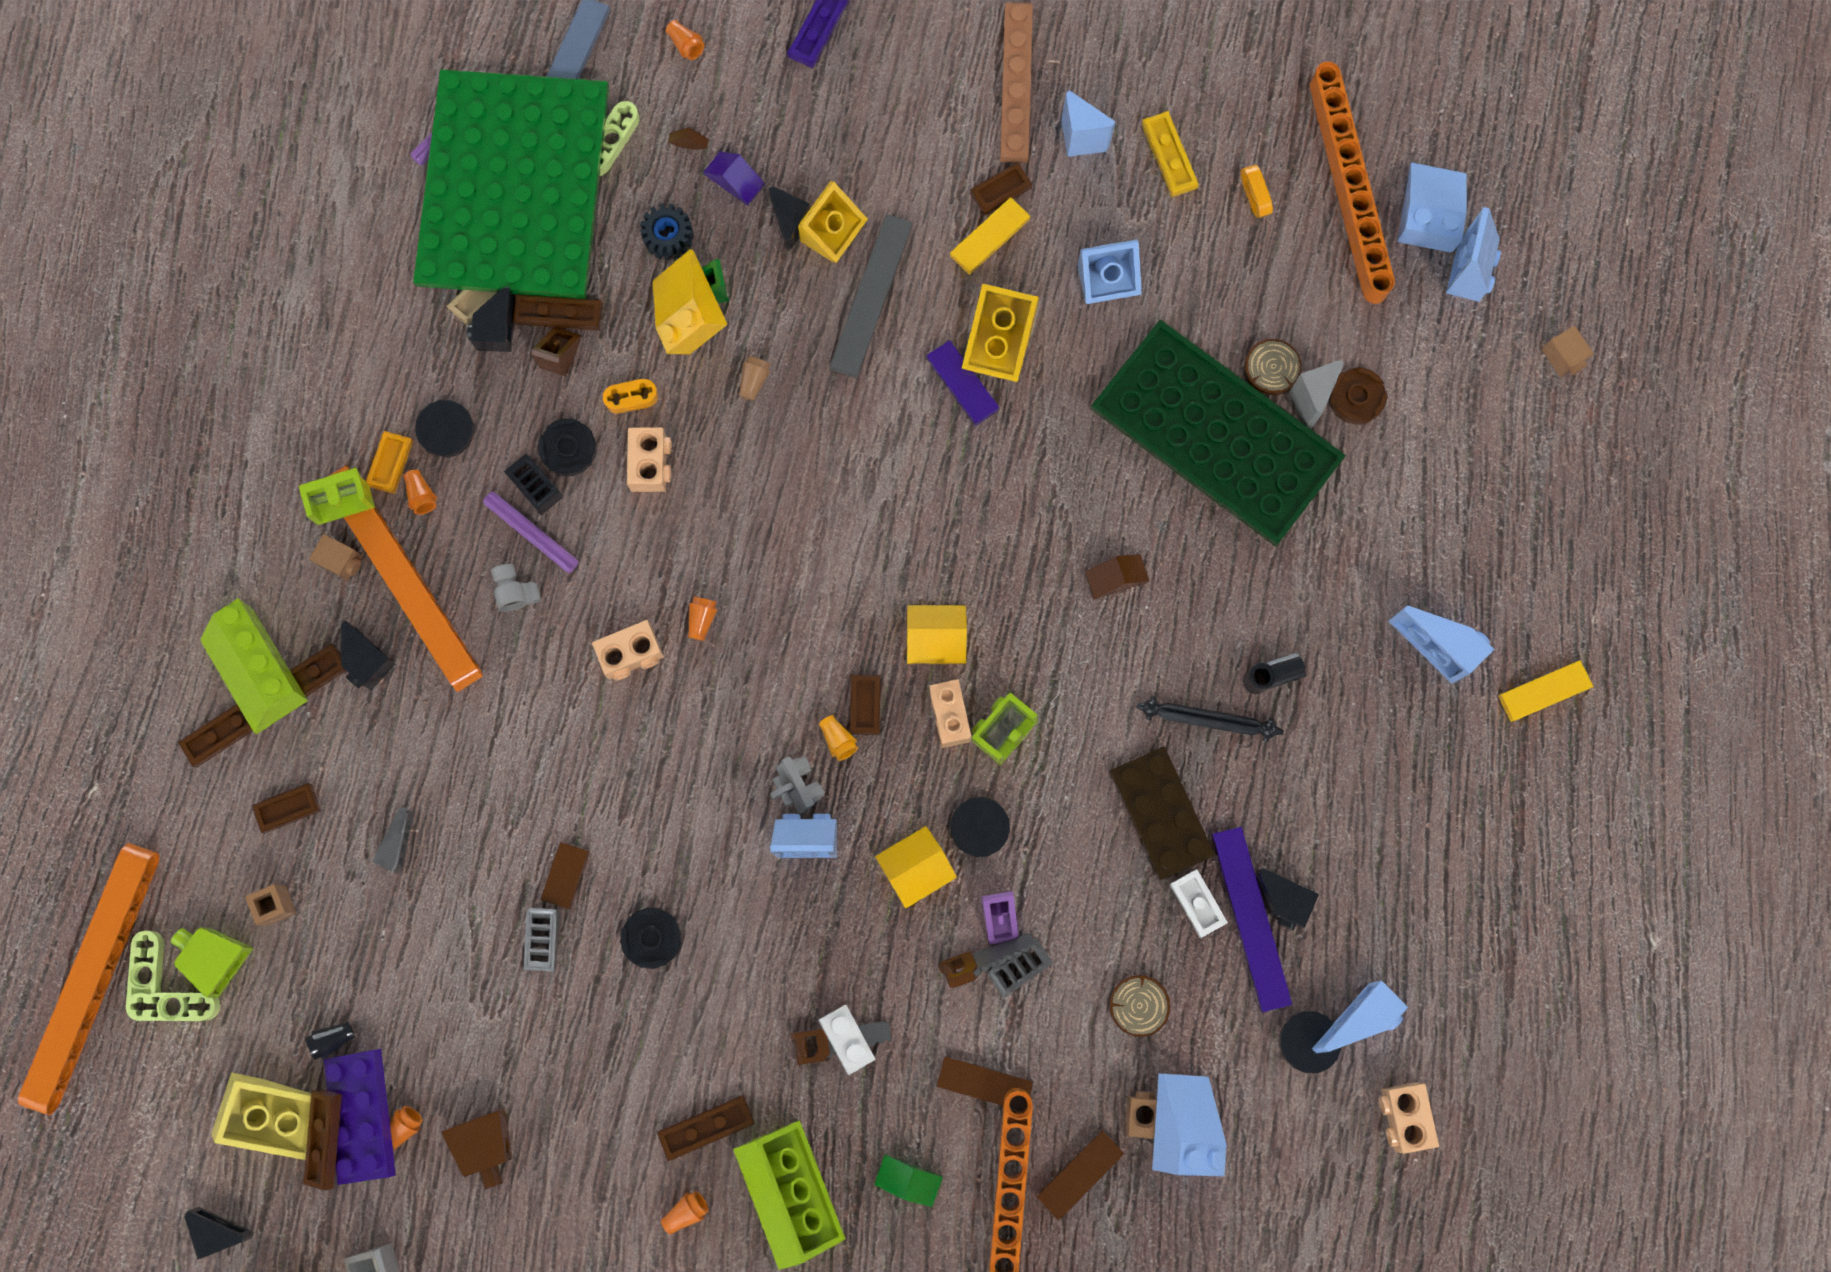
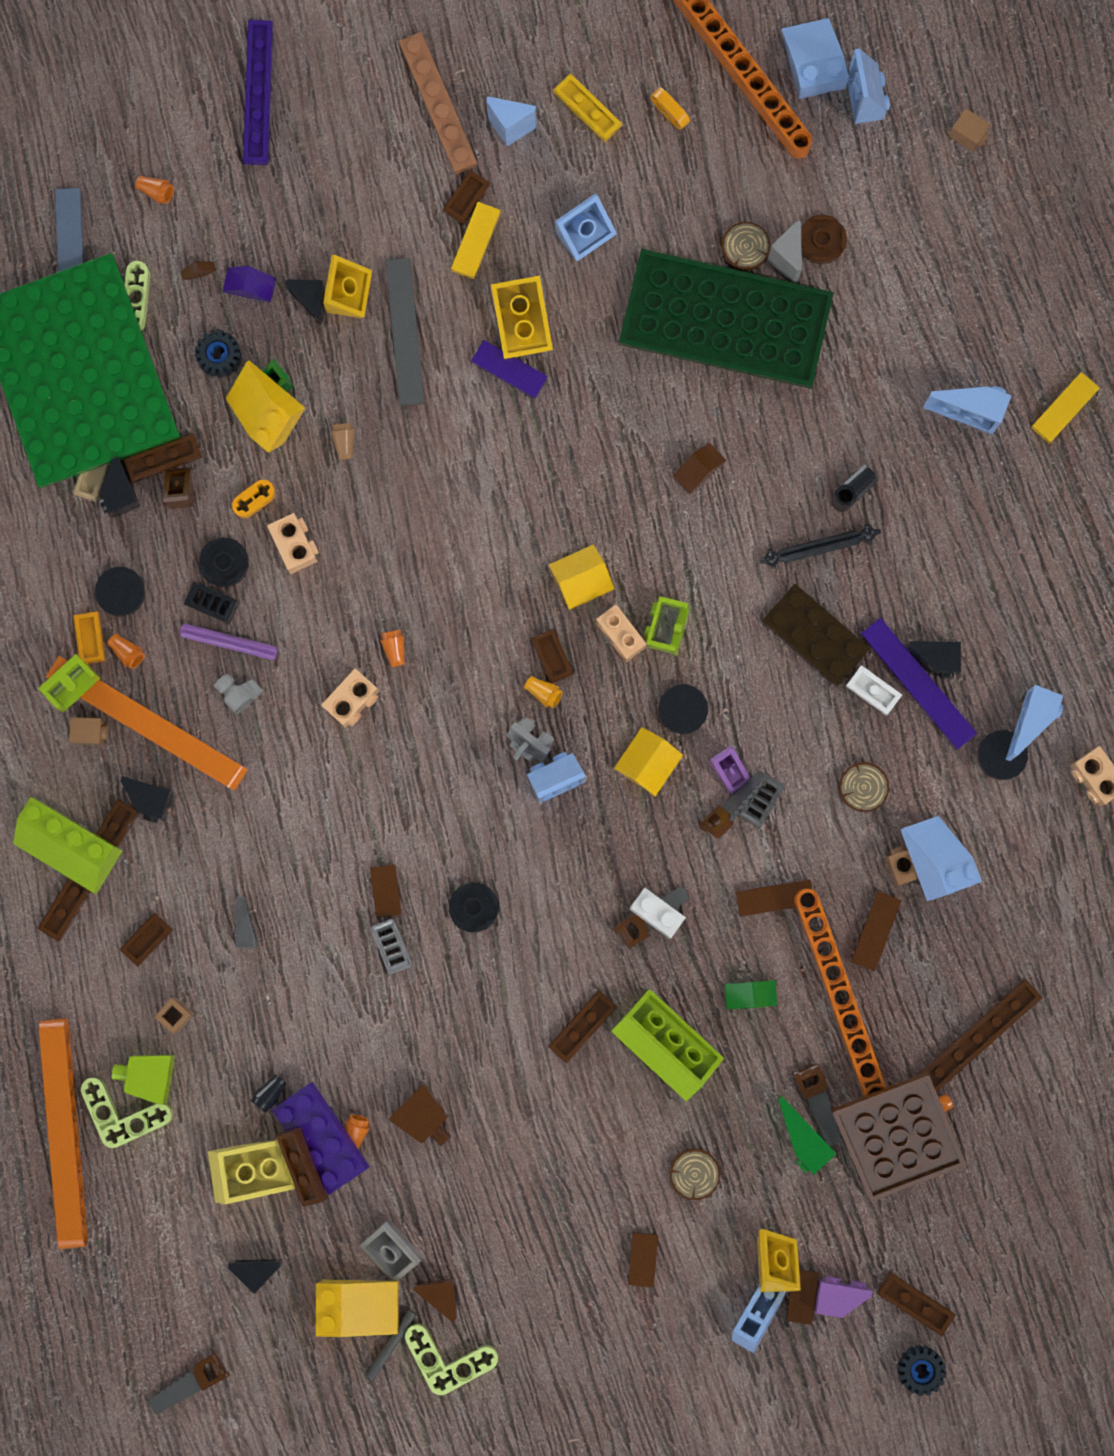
camera: 20 degrees left, 5 degrees up
(687, 1211) = (597, 1094): orange cone -> none

